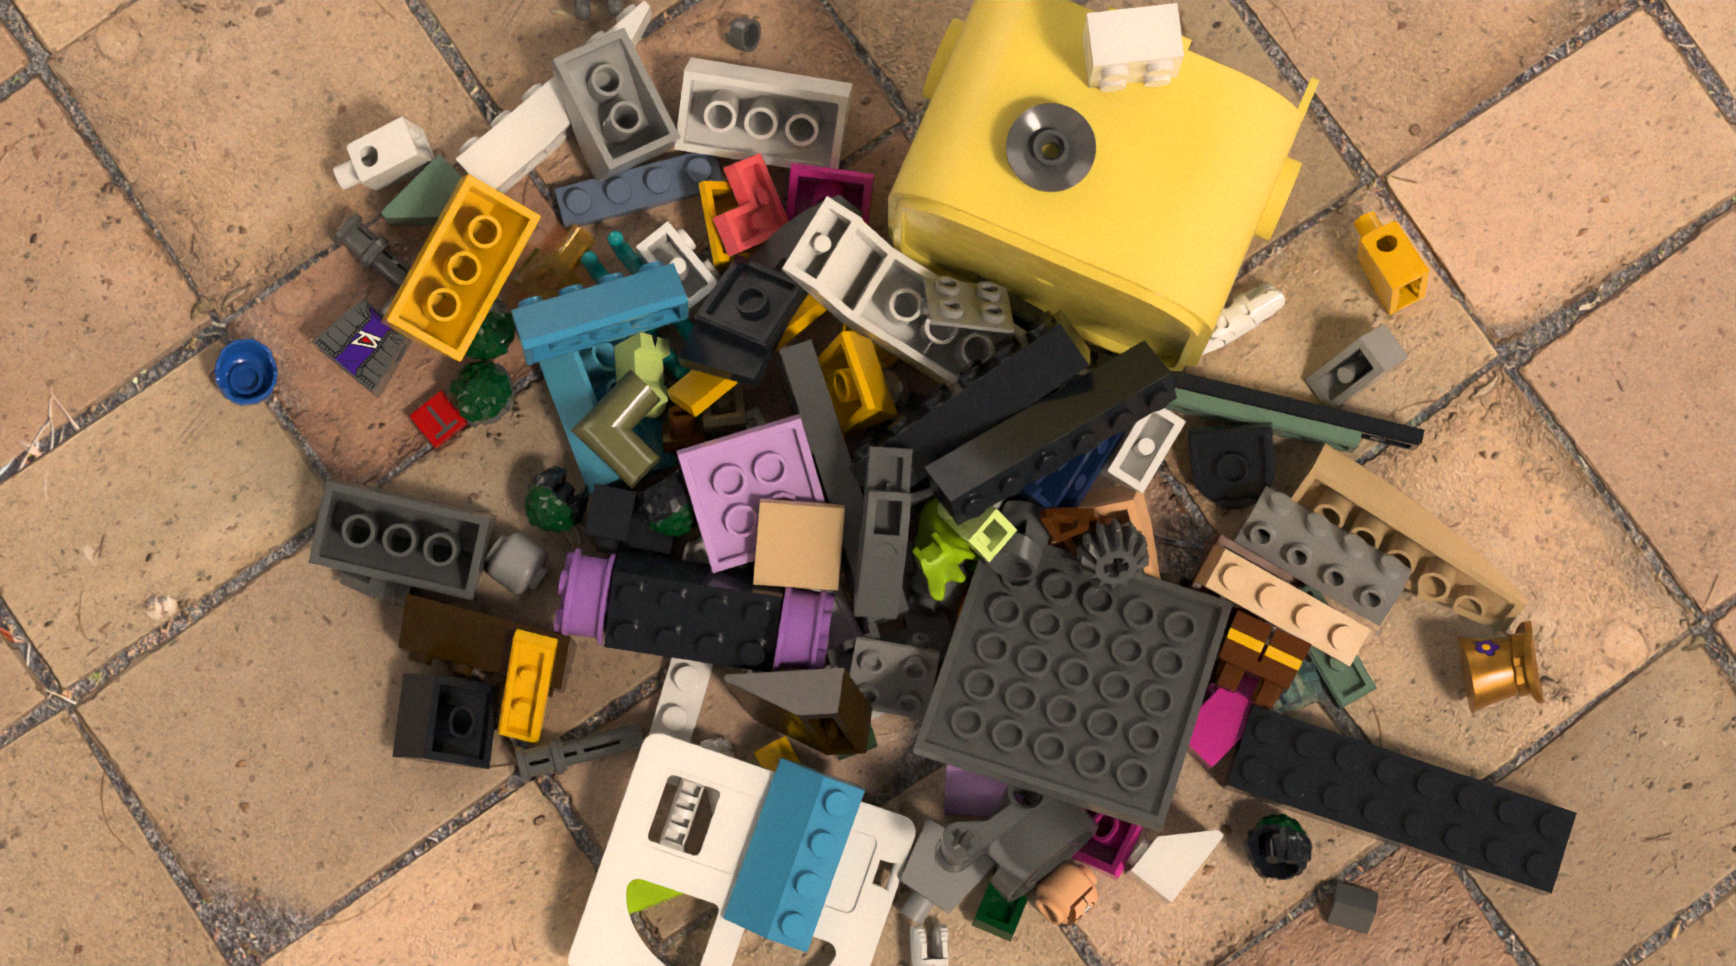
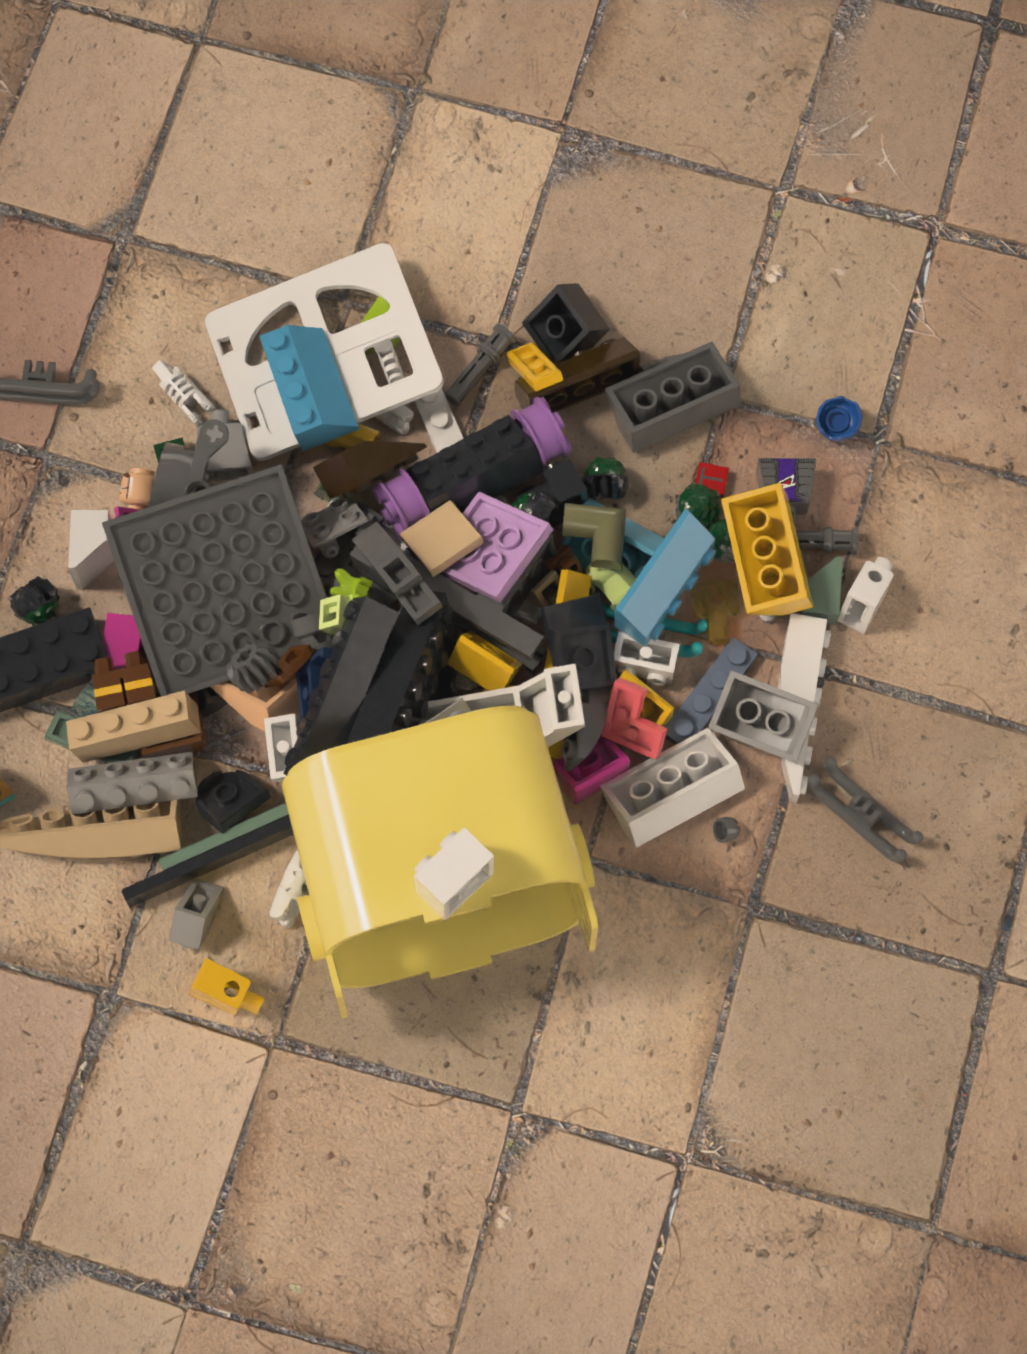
camera: 140 degrees right, 10 degrees down
(517, 563) = (598, 434): light grey head -> none
(1056, 126) = (456, 766): dark grey dish -> none

